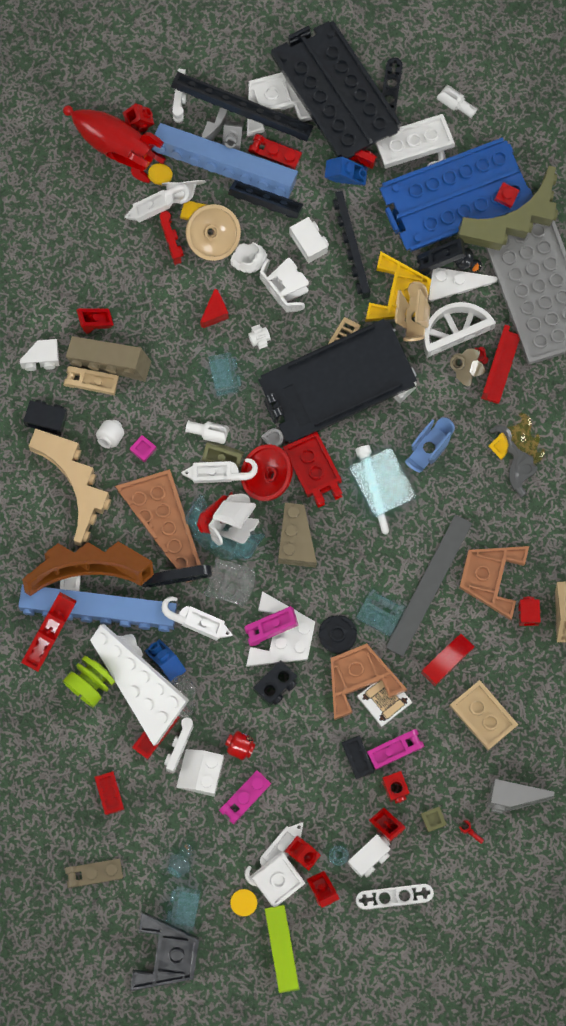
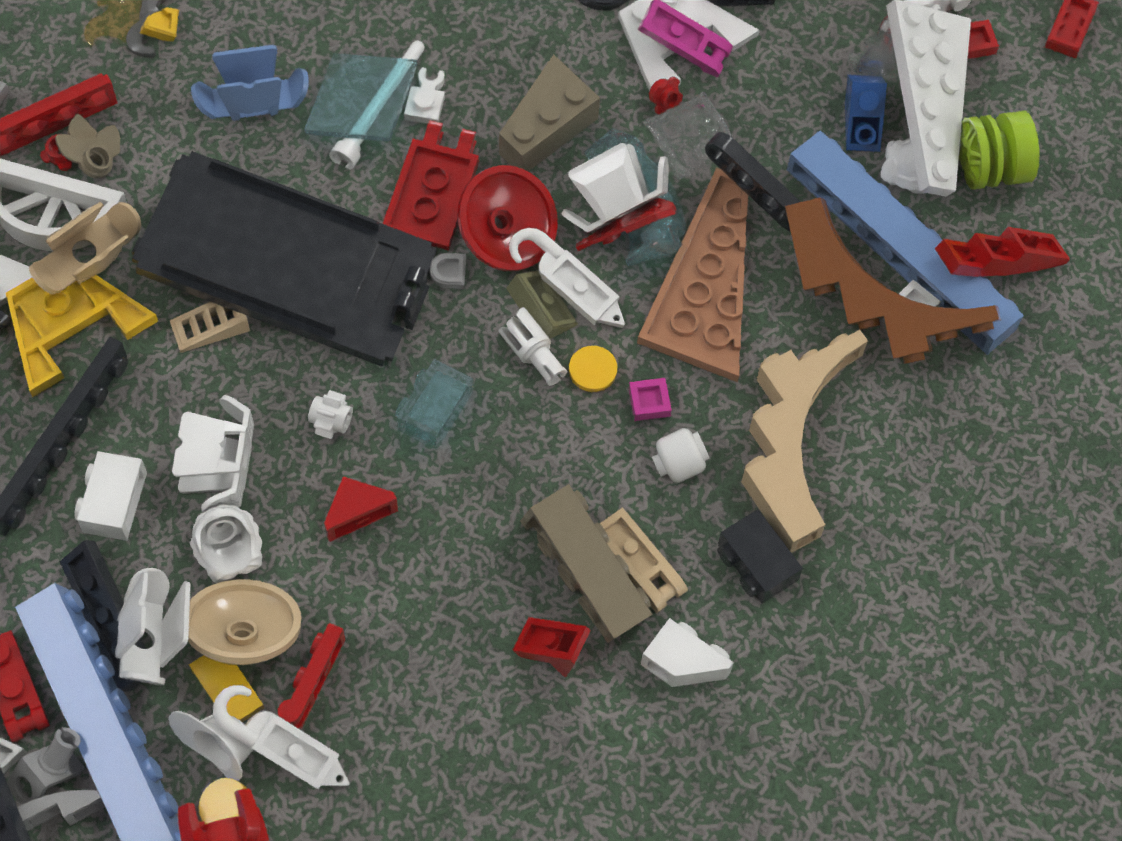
camera: 140 degrees left, 10 degrees down
(177, 444) = (593, 368): none -> yellow piece
(197, 621) = (780, 118): white plate -> none
(232, 186) = (144, 613): none -> white piece
(256, 593) = (665, 94): none -> red plate
(355, 506) = (427, 101): none -> white plate

